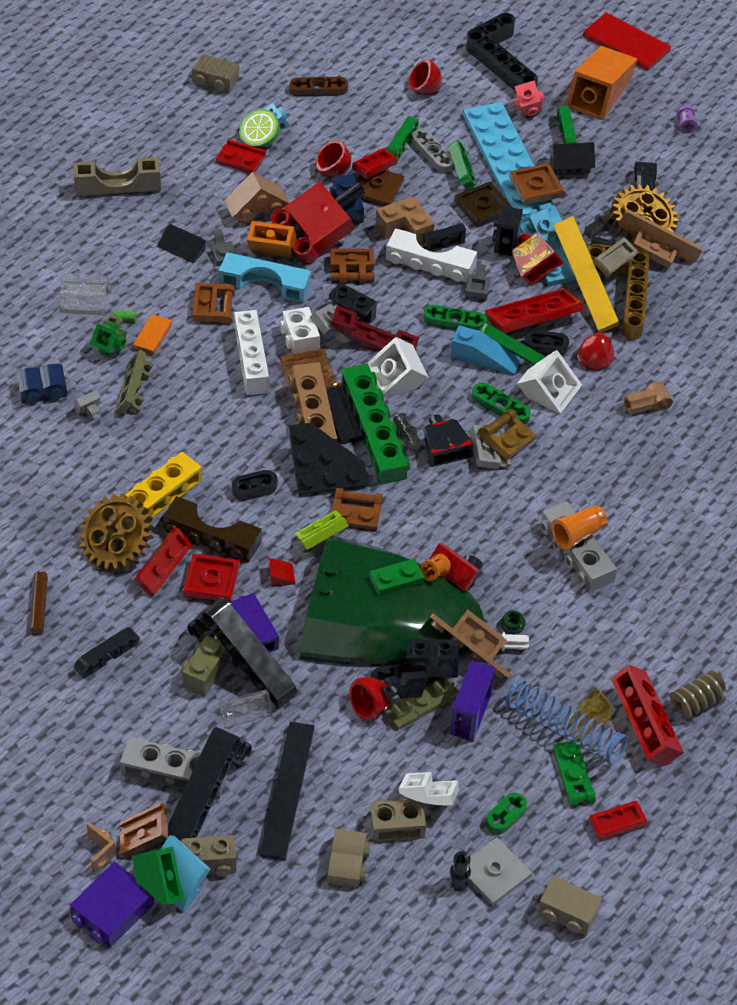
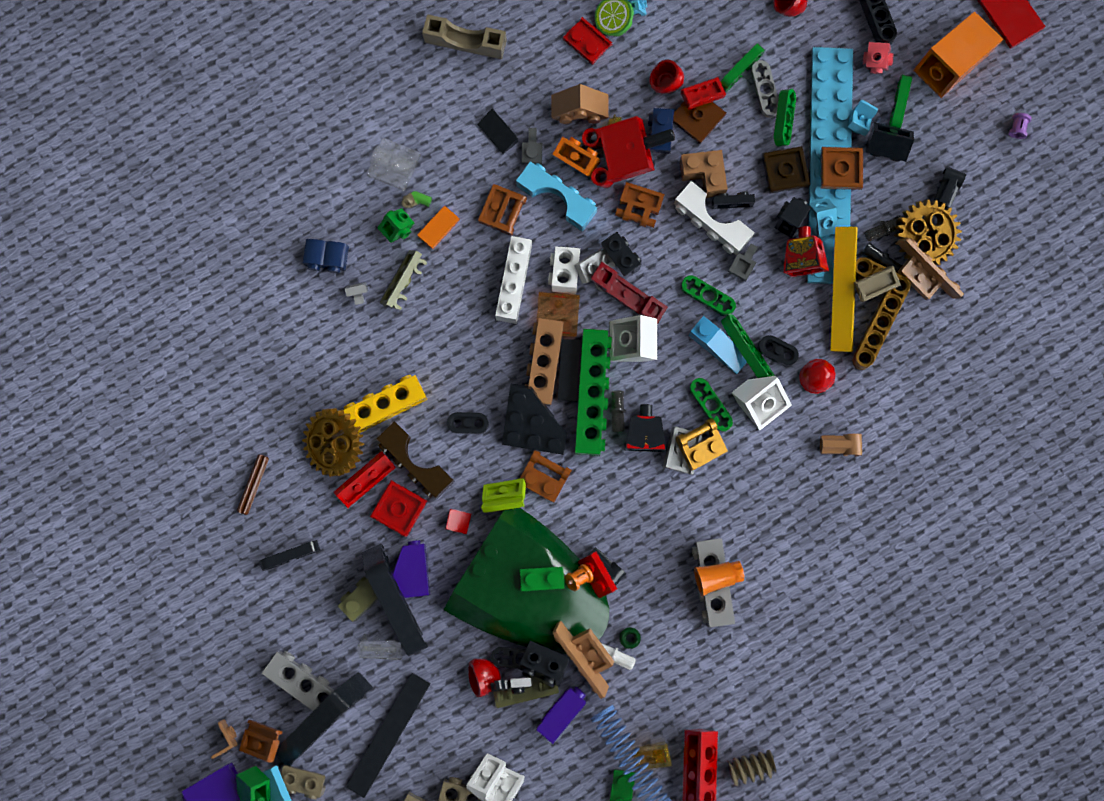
camera: 25 degrees right, 30 degrees up
(534, 310) = (781, 312): red tile -> none
(536, 145) = (861, 117): none -> medium azure bracket

